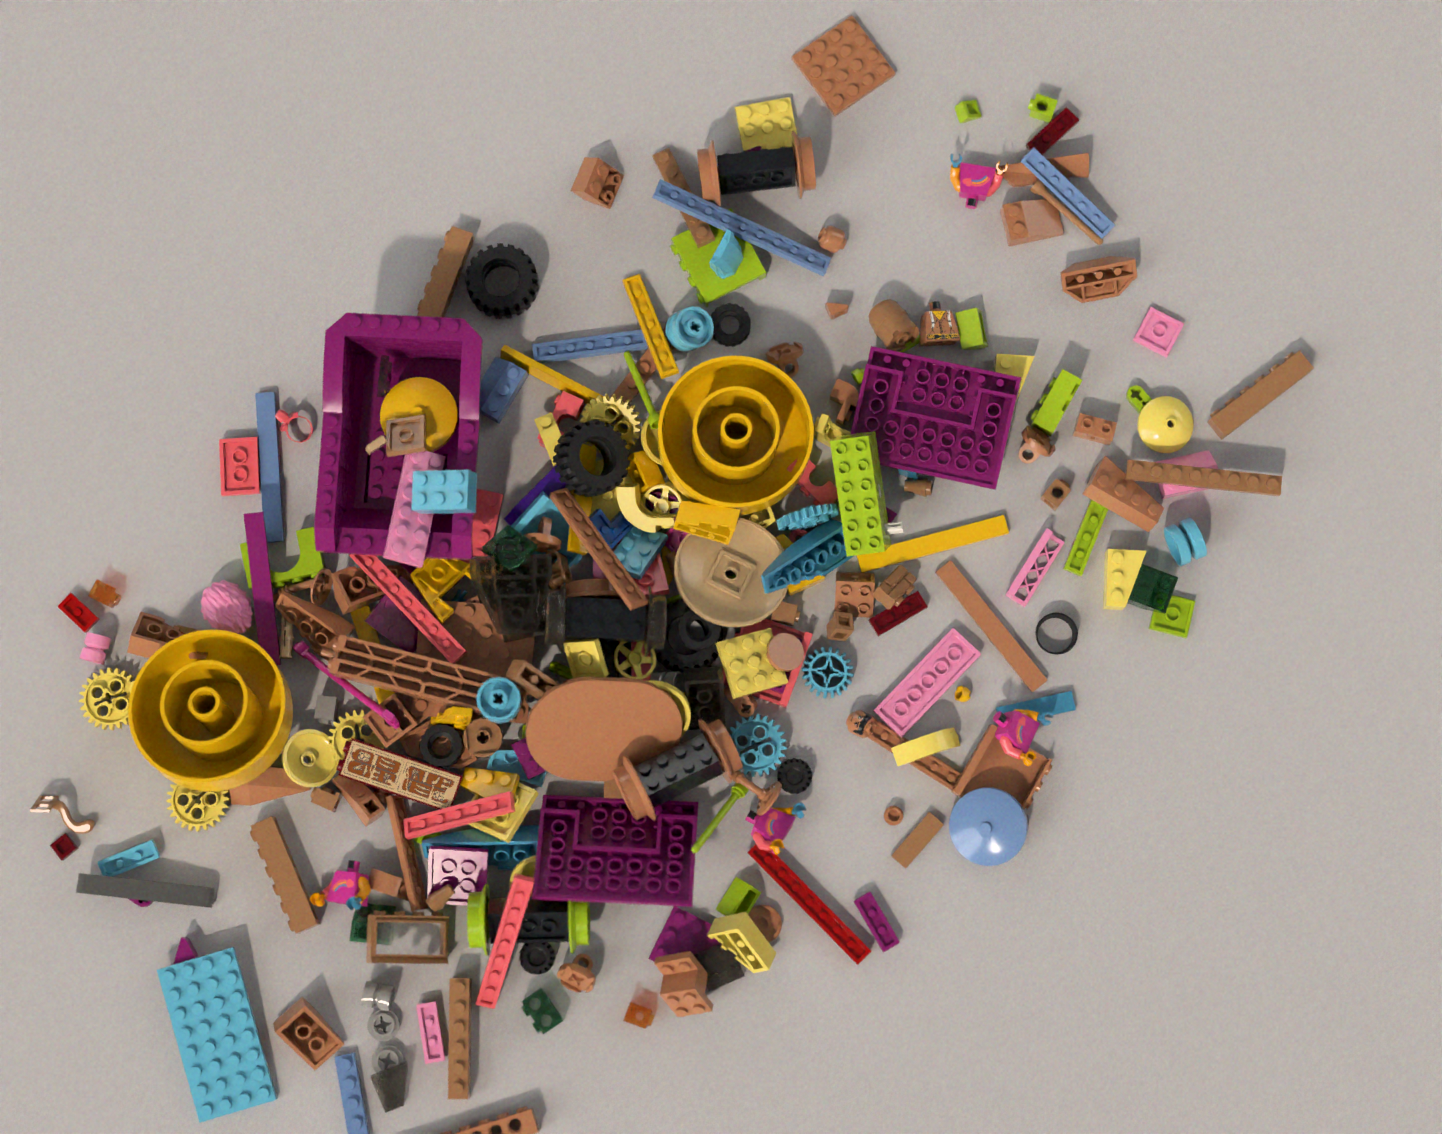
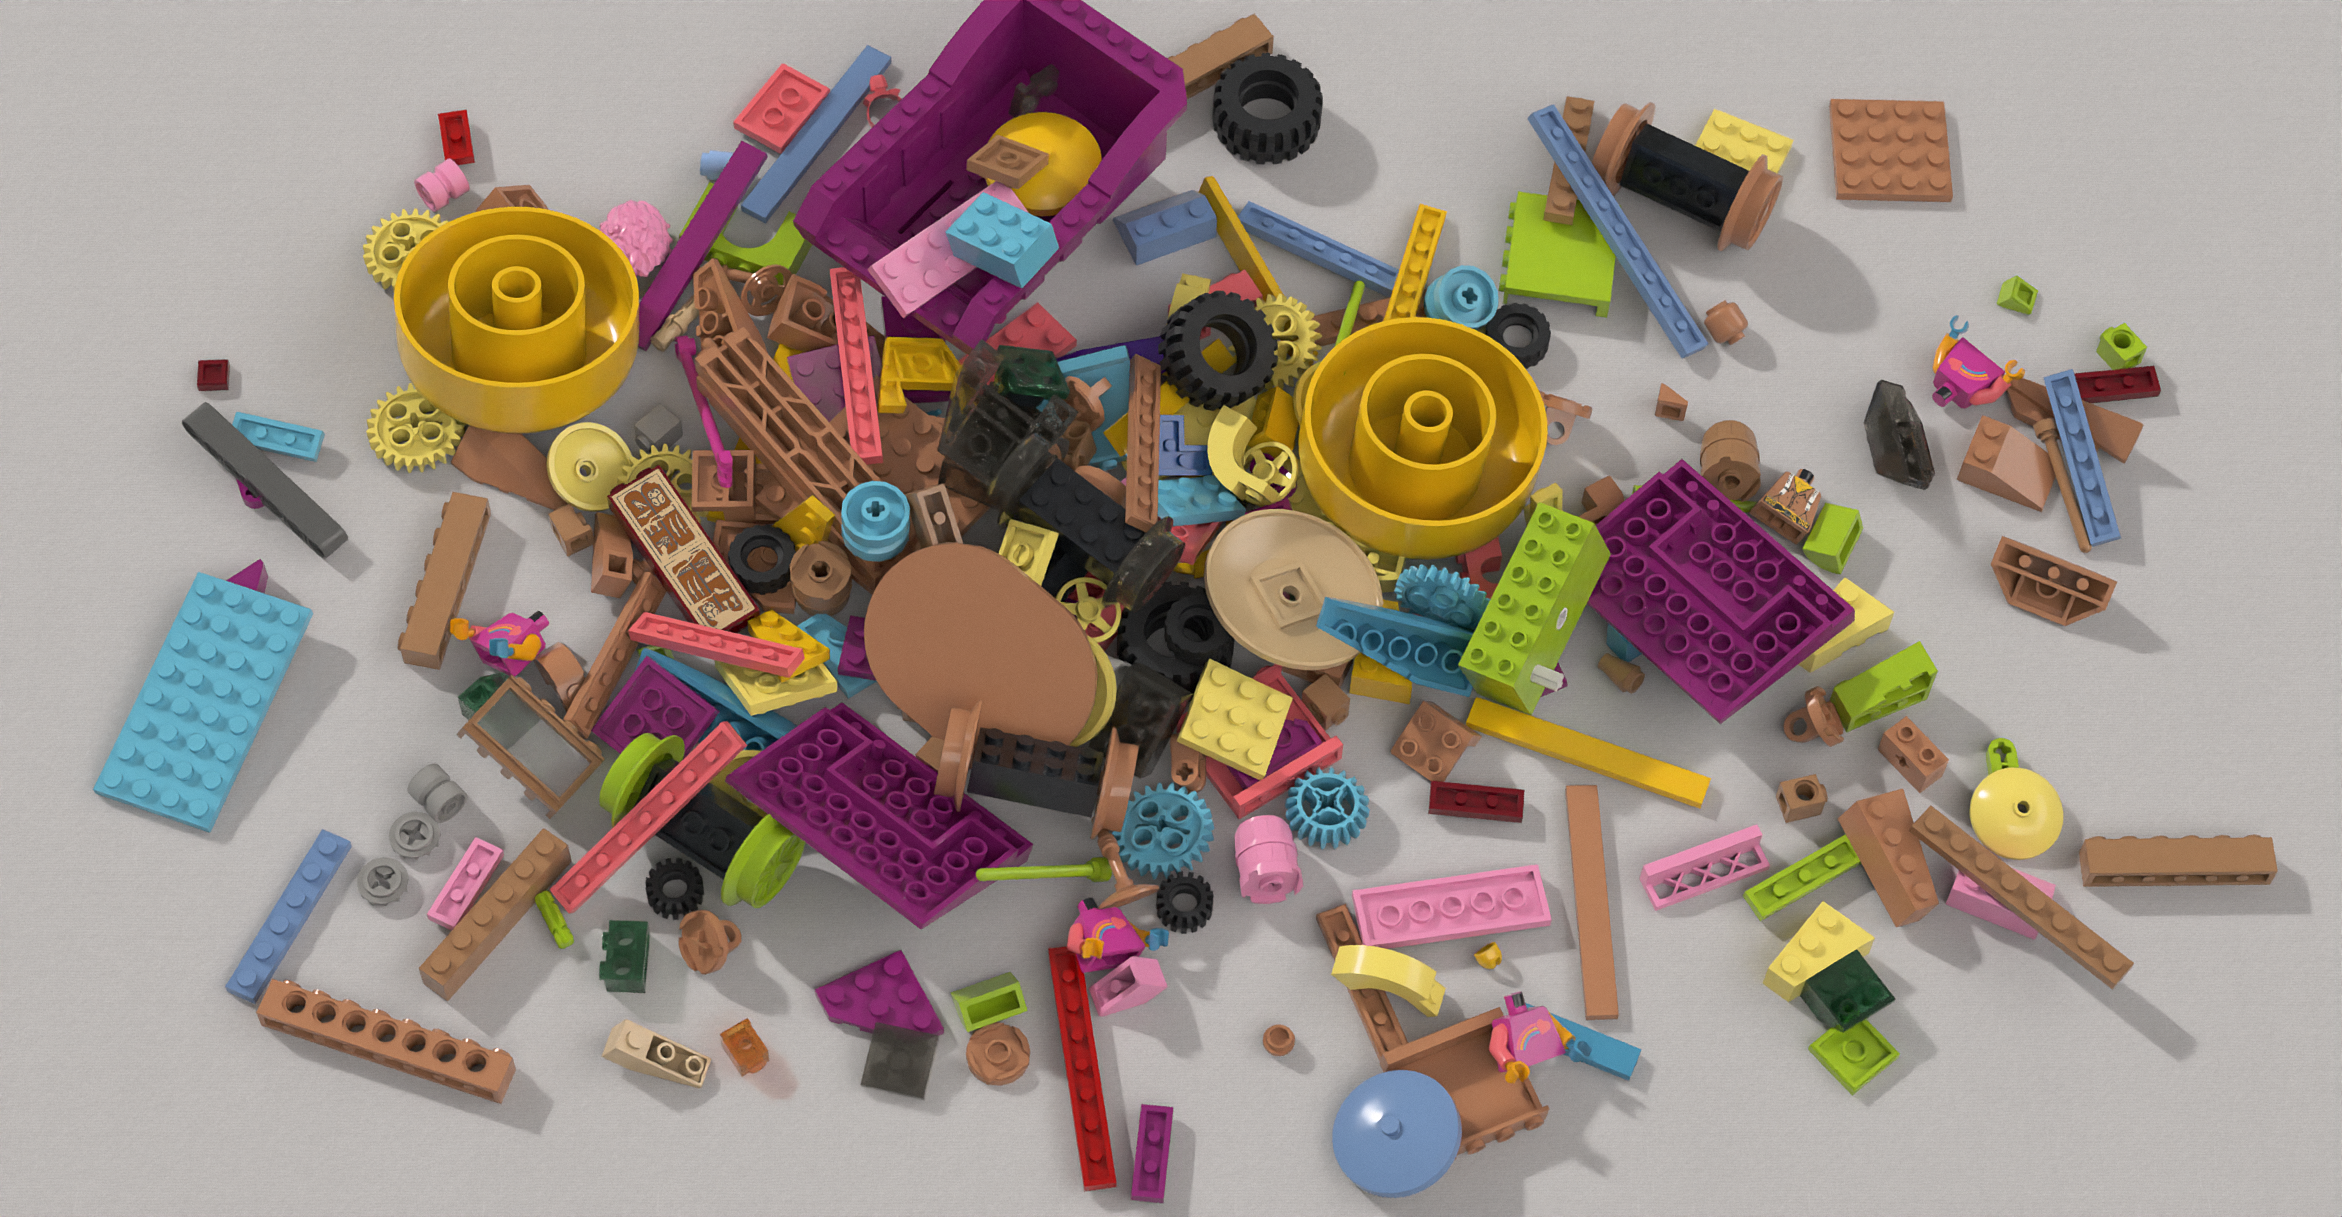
camera: 30 degrees right, 20 degrees down
(77, 827) = (250, 366): medium nougat piece -> none
(104, 595) = (503, 137): clear orange brick -> none
(234, 526) = (714, 163): none -> light blue brick
(307, 1033) = (314, 779): nougat slope -> none
(376, 444) = (962, 143): tan tile -> none
(391, 1086) = (361, 910): clear smoke wing -> none
(439, 898) = (612, 728): medium nougat cone -> none
(489, 1017) = (554, 919): none -> lime axle
(597, 182) = (1474, 82): nougat slope -> none
(598, 1051) = (655, 1055): none -> tan slope
(683, 984) = (834, 1042): nougat bracket -> none
(707, 521) = (1308, 506): yellow wedge -> none
(727, 256) = (1571, 243): medium azure slope -> none
(745, 940) = (957, 1045): light yellow wedge -> none
(785, 652) = (1288, 734): nougat tile -> none
(800, 843) = (1128, 985): none -> bright pink slope
(819, 725) = (1267, 859): none -> bright pink piece
(840, 626) = (1386, 761): medium nougat brick -> none
(861, 724) = (1323, 893): nougat head -> none
(894, 587) = (1496, 762): medium nougat brick -> none
(917, 840) = (1287, 1093): medium nougat tile -> none
(968, 249) = (1897, 437): none -> clear smoke wedge
(1069, 621) = (1680, 939): black tyre -> none
(1158, 332) = (2089, 701): bright pink tile -> none
(1185, 541) = (1943, 964): medium azure wheel -> none

